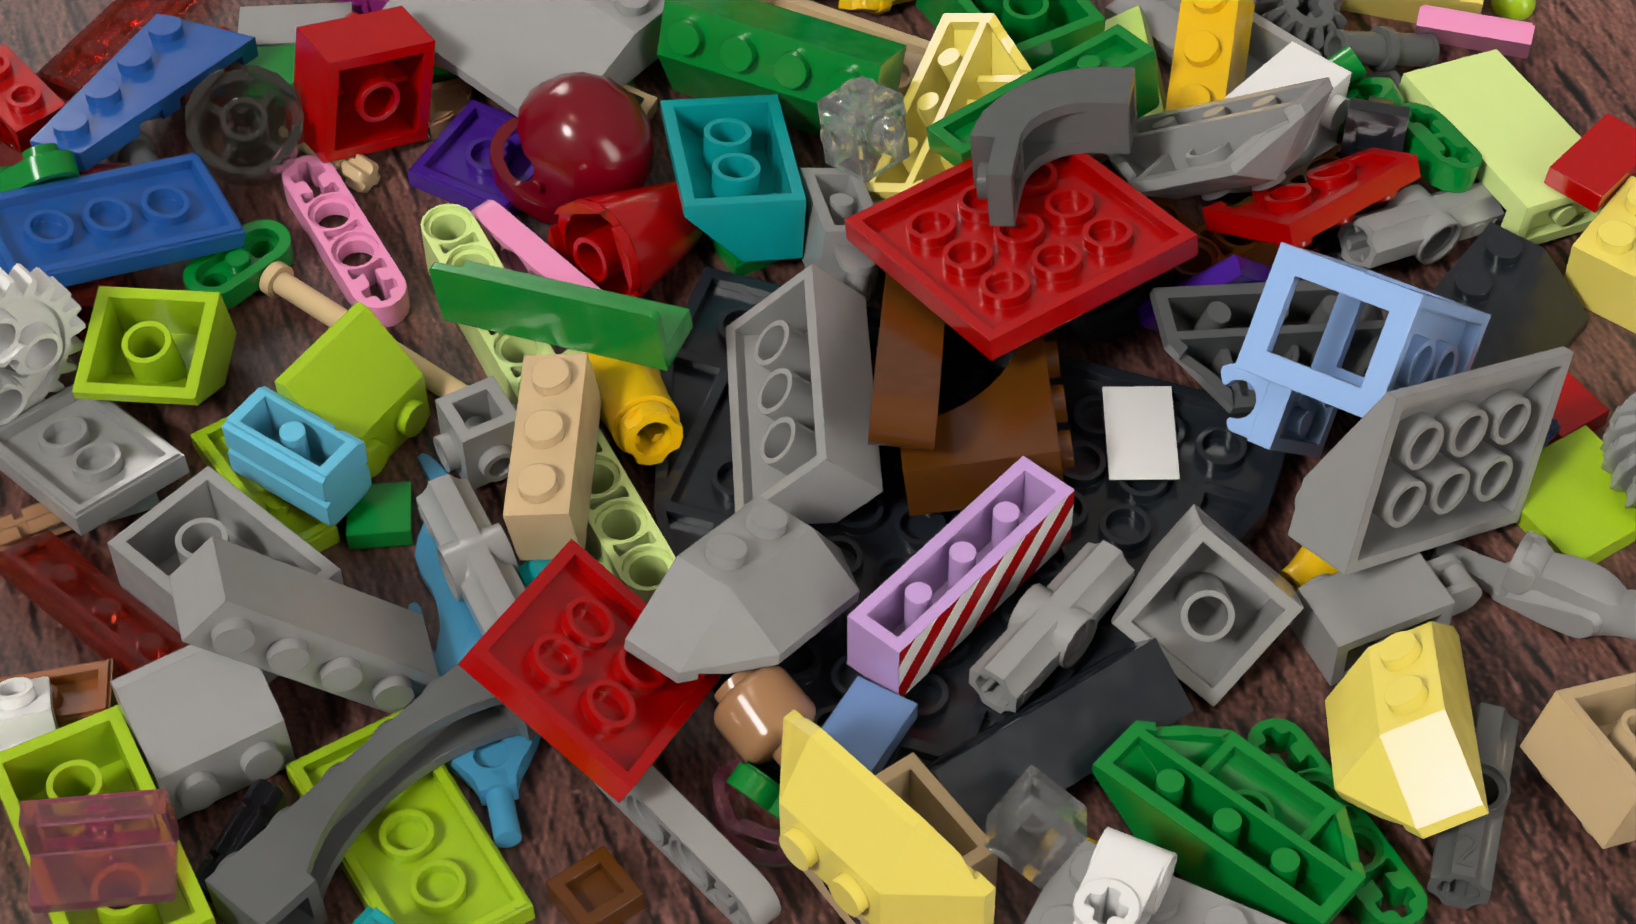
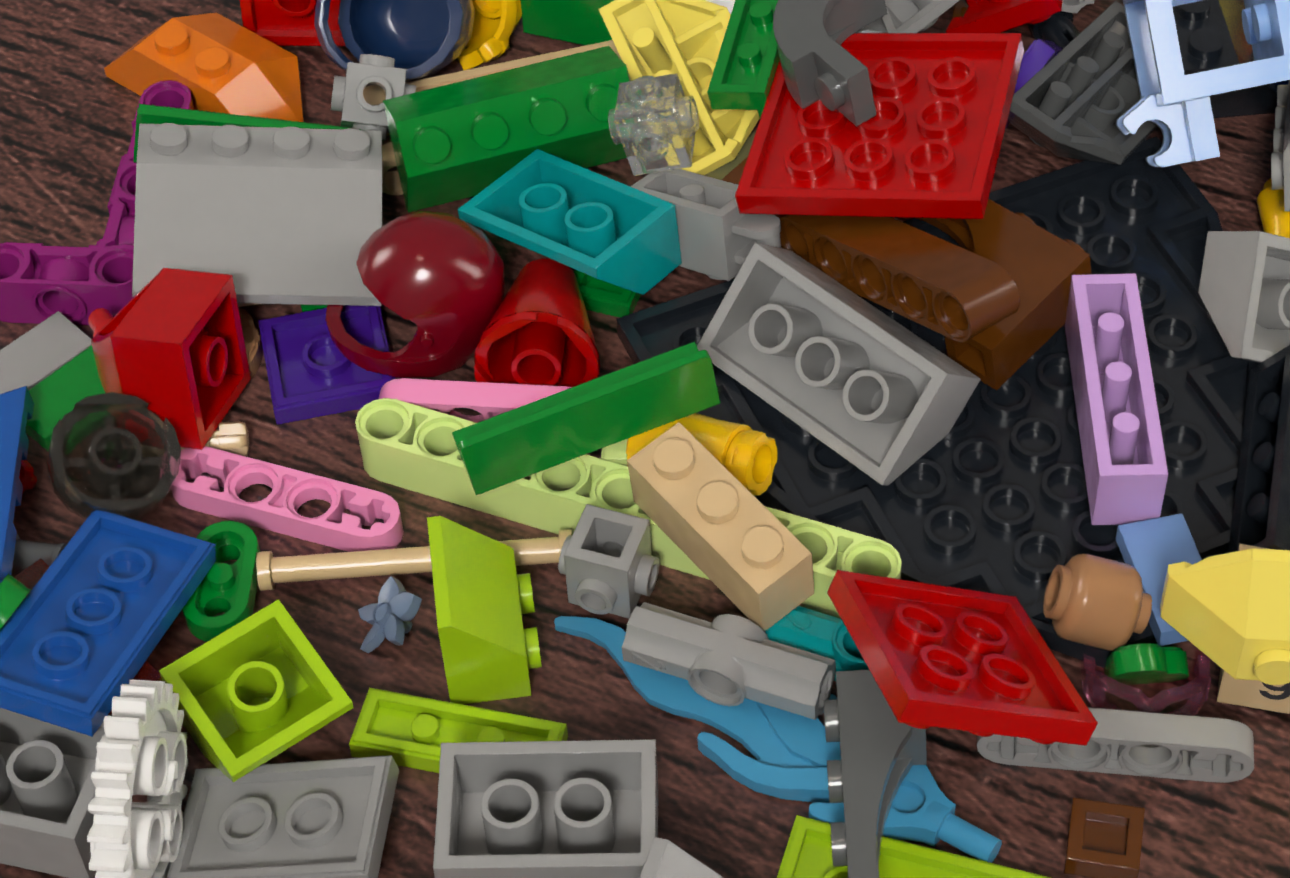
camera: 40 degrees left, 0 degrees up
(297, 455) = (497, 682): medium azure brick -> none
(301, 626) = (701, 802): light grey brick -> none
(382, 517) = (583, 690): green tile -> none
(743, 596) = (1000, 523): light grey wedge -> none
(1051, 627) = (1202, 391): light grey piece -> none
(1140, 433) = (1075, 217): white sticker -> none

